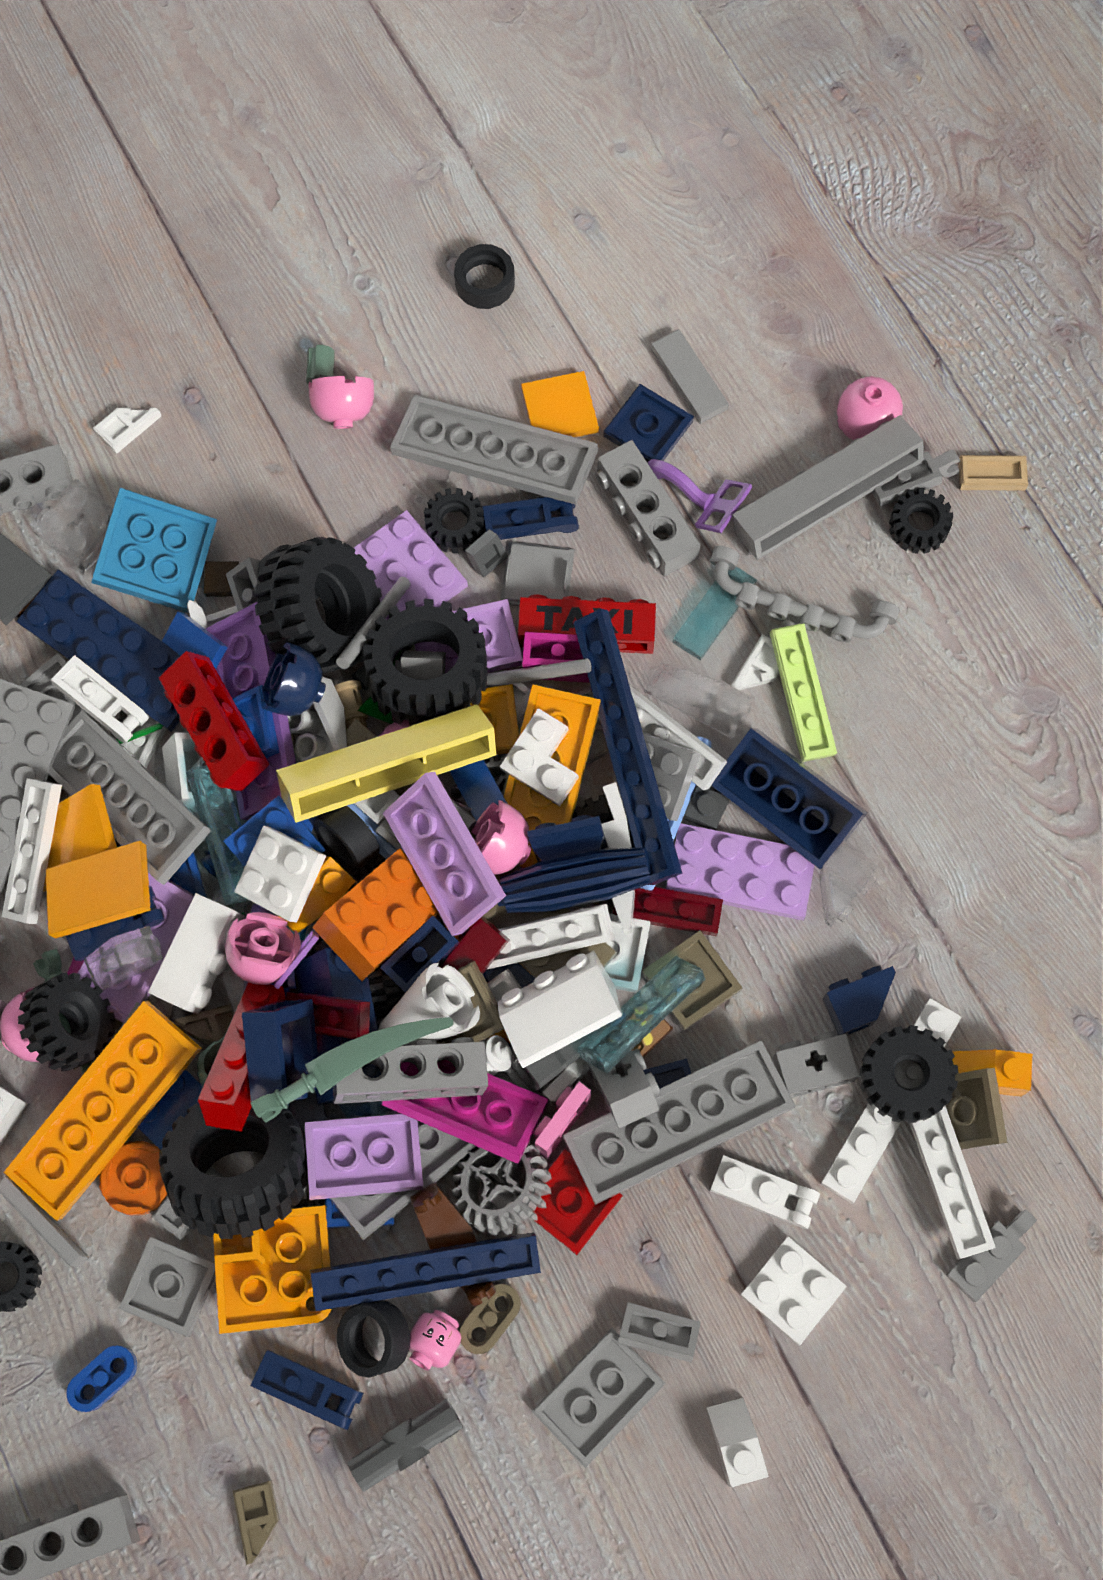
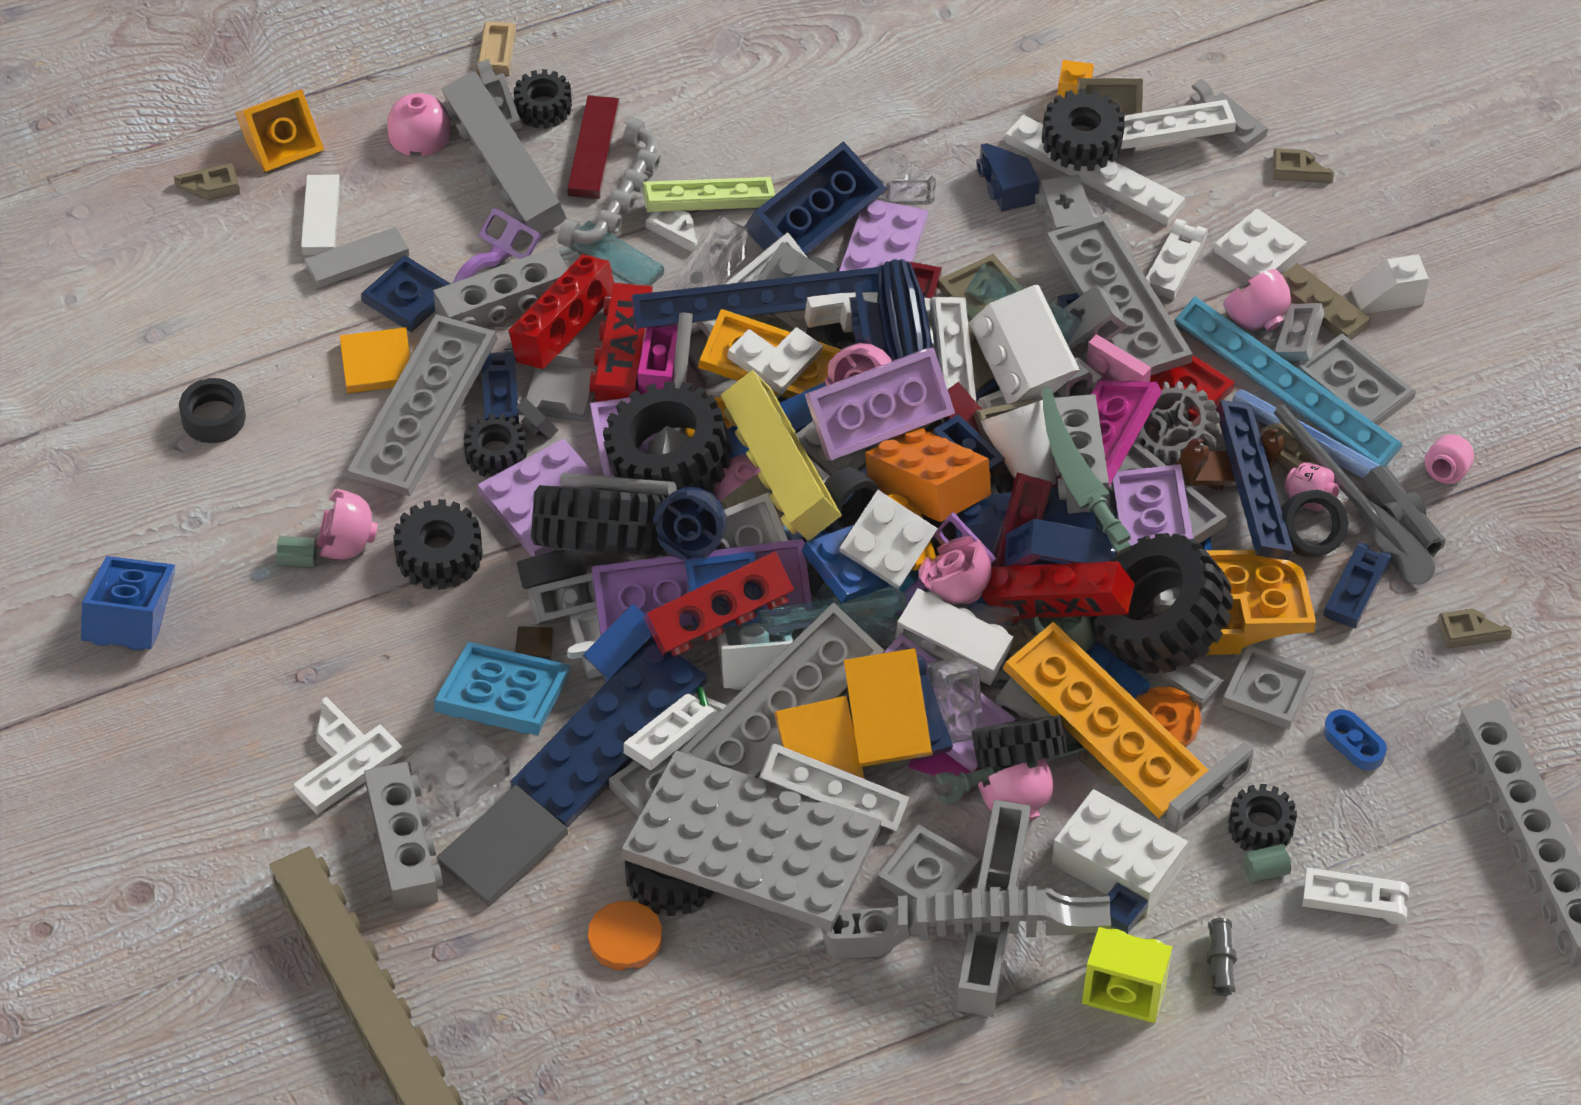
camera: 90 degrees left, 20 degrees down
(78, 437) = (346, 769): none -> white plate
(260, 238) = (126, 603): none -> blue slope
(333, 503) = (442, 563): none -> black tyre
(365, 1431) = (1407, 553): none -> dark grey piece
(479, 1502) = (1449, 459): none -> bright pink head
(513, 1338) = (1338, 452): none -> light blue axle
(585, 1318) = (1287, 382): none -> medium azure tile
(615, 559) = (561, 311): none -> red brick
(690, 1285) = (1260, 303): none -> bright pink cylinder
(714, 1361) = (1339, 314): none -> dark tan plate
(743, 338) = (320, 214): none -> white tile
(776, 241) = (210, 182): none -> dark tan tile
(844, 284) = (280, 130): none -> light orange slope
(864, 577) = (593, 147): none -> dark red tile
(925, 1339) = (1299, 166): none -> dark tan tile

